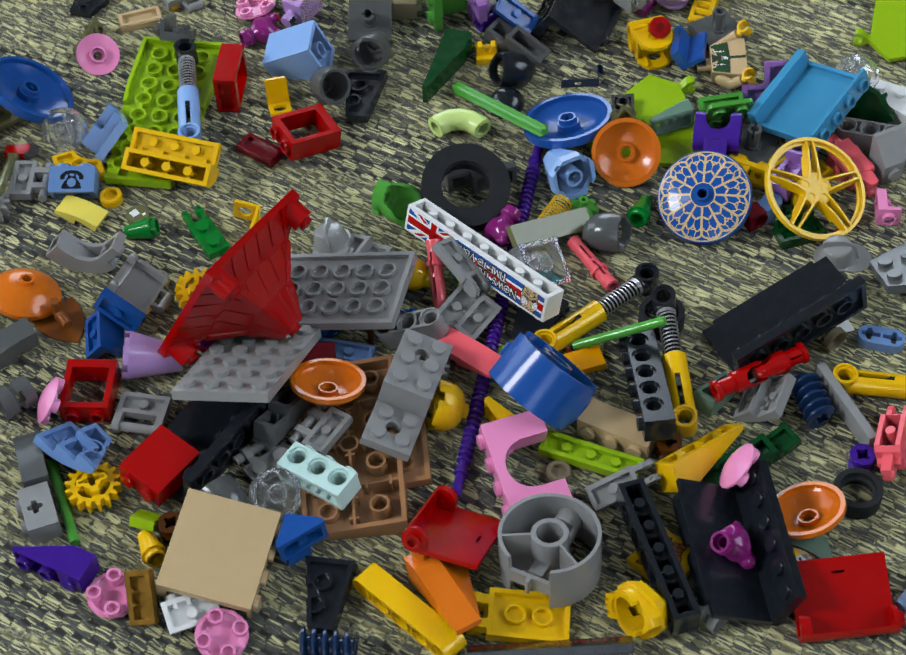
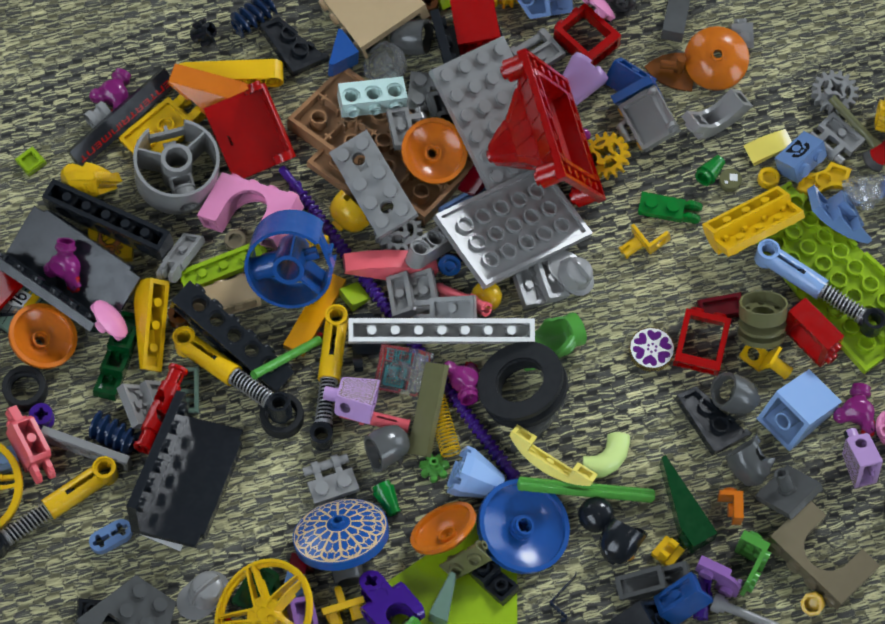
camera: 130 degrees right, 15 degrees up
(251, 102) = (762, 319): none -> olive wheel
(341, 161) = (651, 349): none -> tile
(411, 40) = (736, 507): none -> orange bracket
(505, 127) = (548, 464): none -> light yellow slope
(597, 268) = (354, 398): none -> lavender torso
(672, 249) = (334, 485): none -> light grey plate

